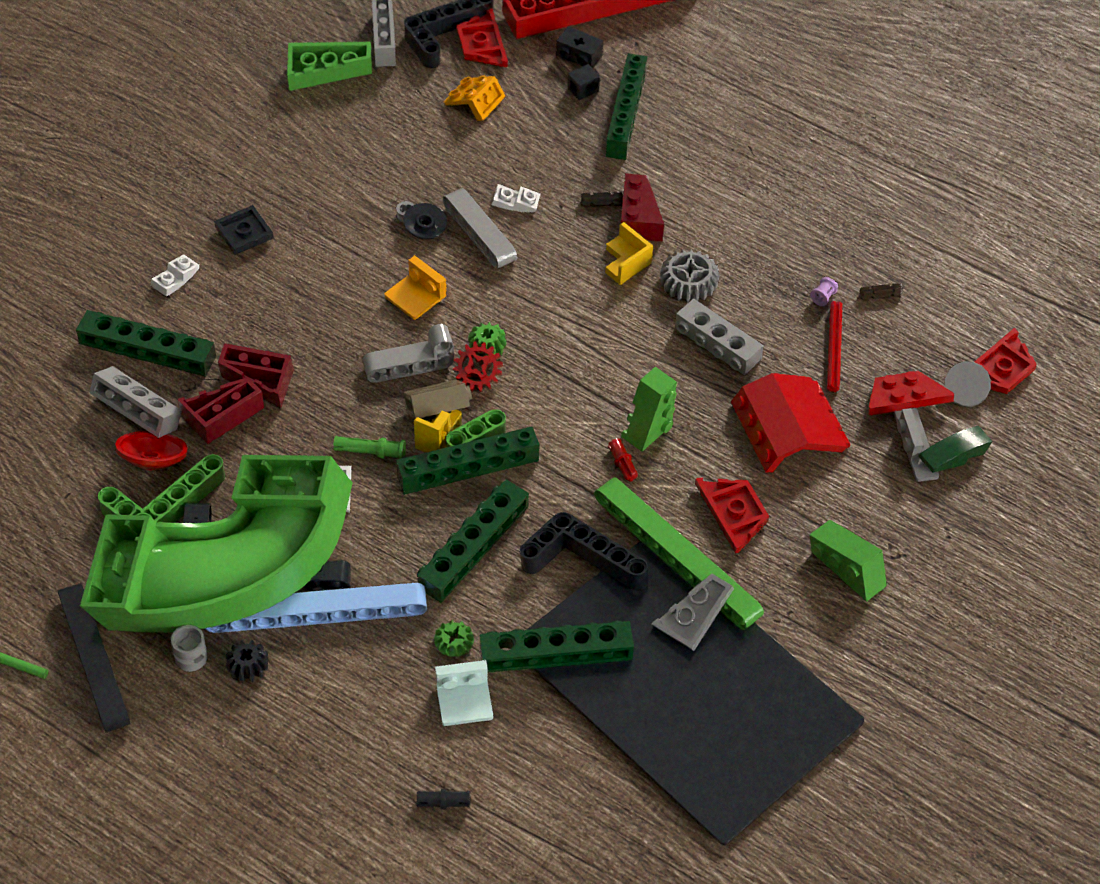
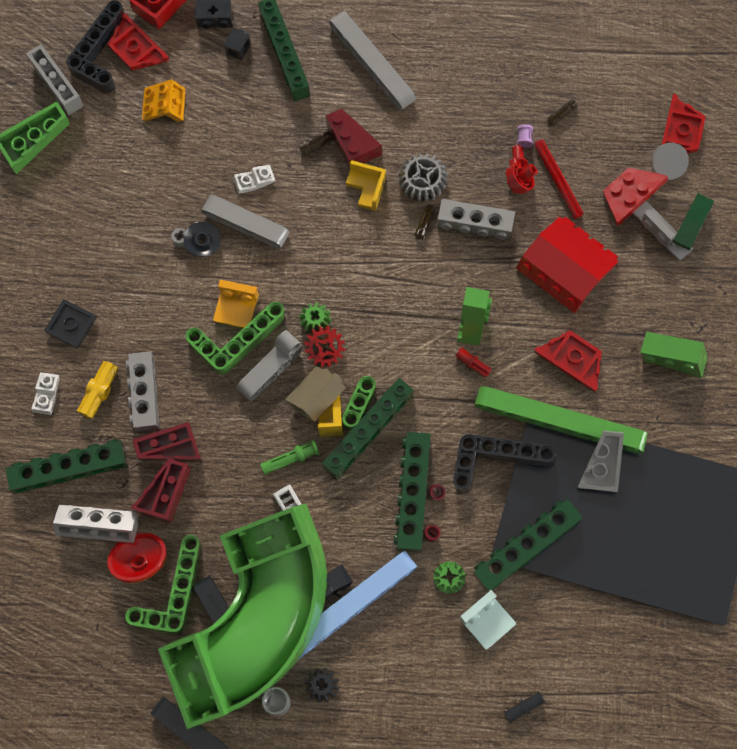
camera: 25 degrees left, 20 degrees up
(226, 295) = (97, 389): none -> yellow piece
(270, 315) = (150, 420): none -> light grey brick
(397, 325) = (238, 341): none -> bright green beam
(468, 587) = (434, 531): none -> dark red hinge
(492, 552) = (441, 490): none -> dark red hinge
(663, 316) = (425, 221): none -> dark brown axle
(710, 157) = (372, 60): none -> light grey beam
(793, 318) = (520, 173): none -> red pin

